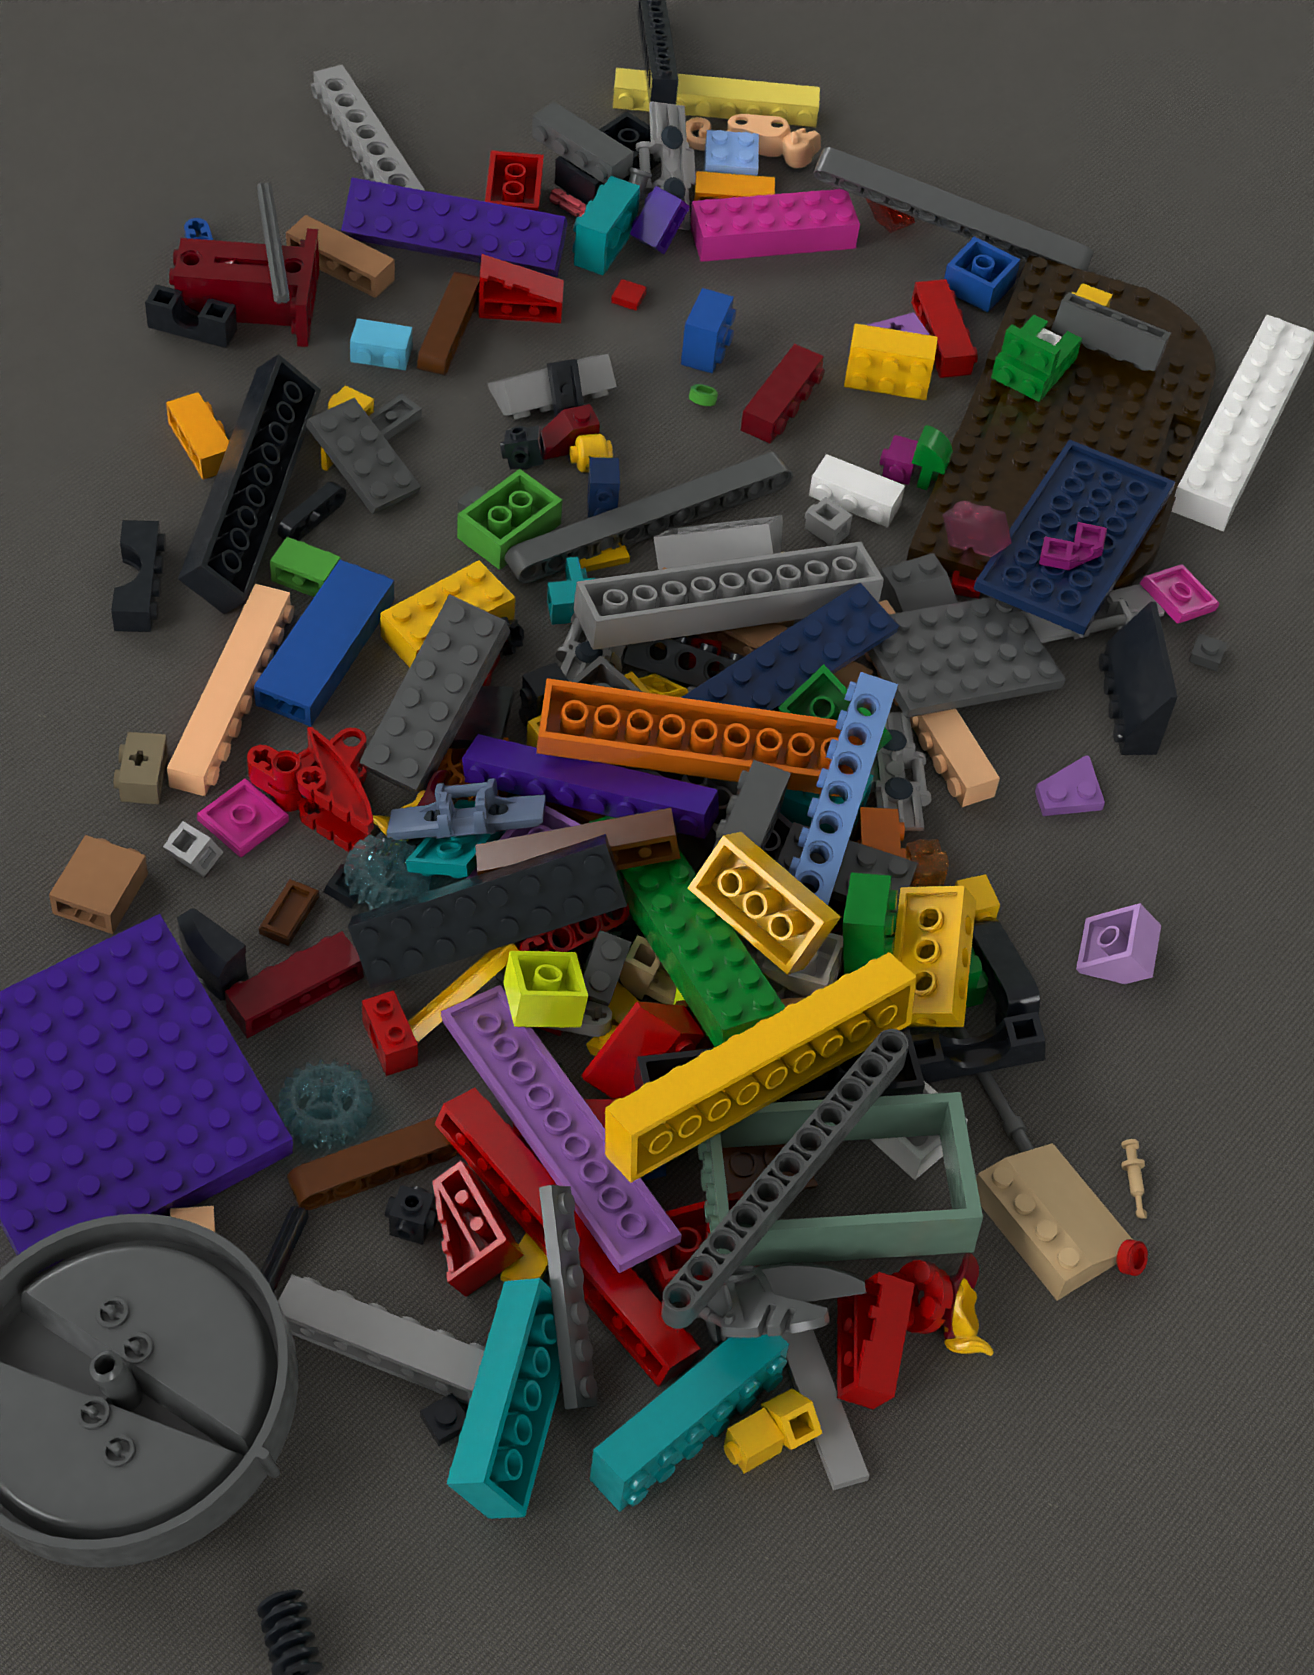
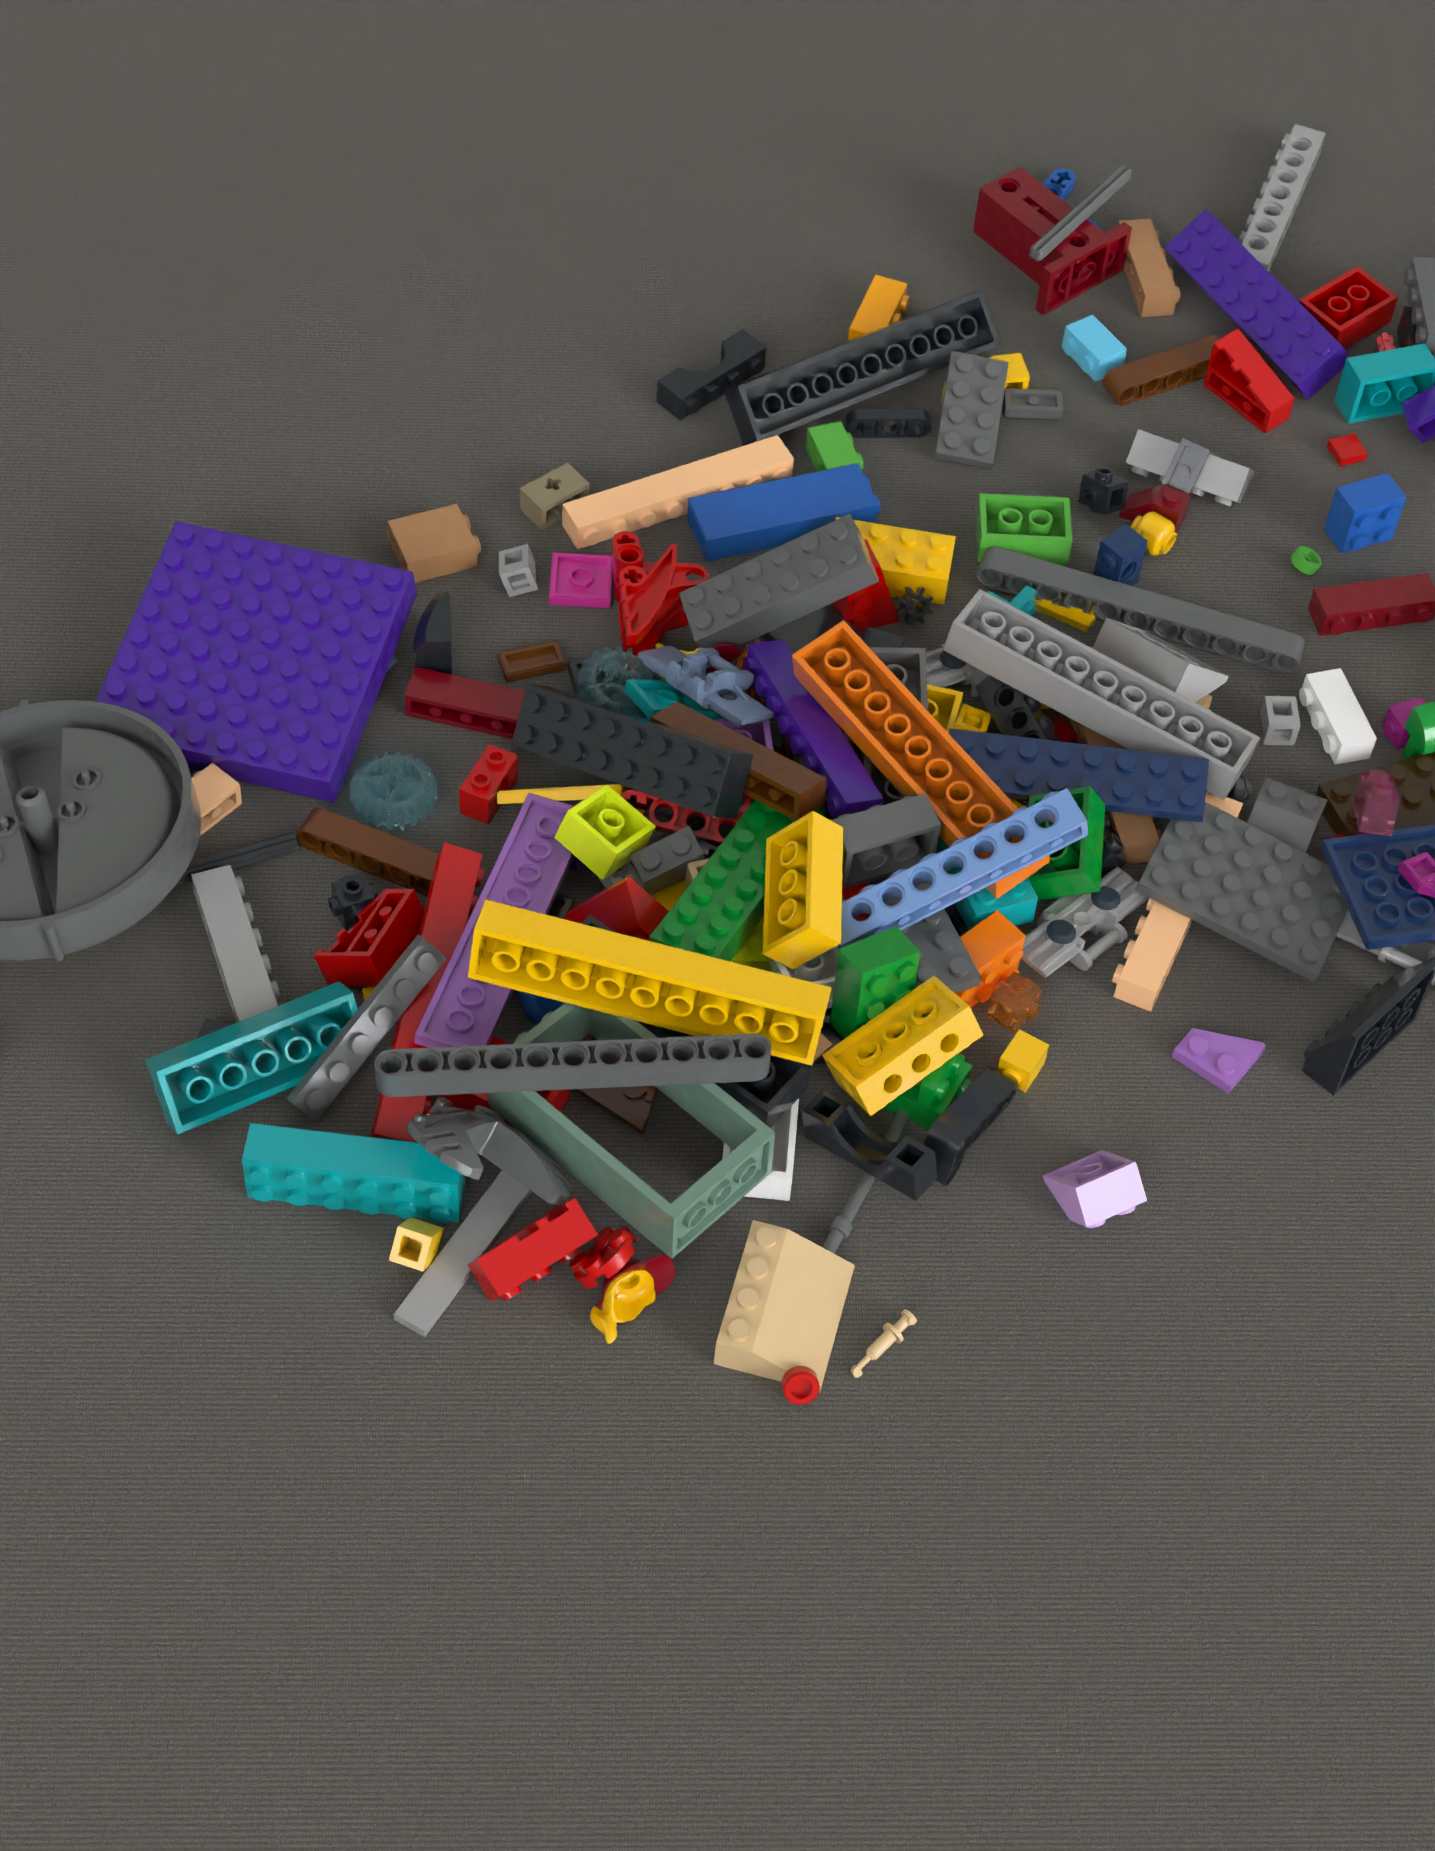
camera: 50 degrees right, 0 degrees up
(170, 314) = (981, 246): black arch -> none
(753, 1441) = (374, 1234): yellow brick -> none

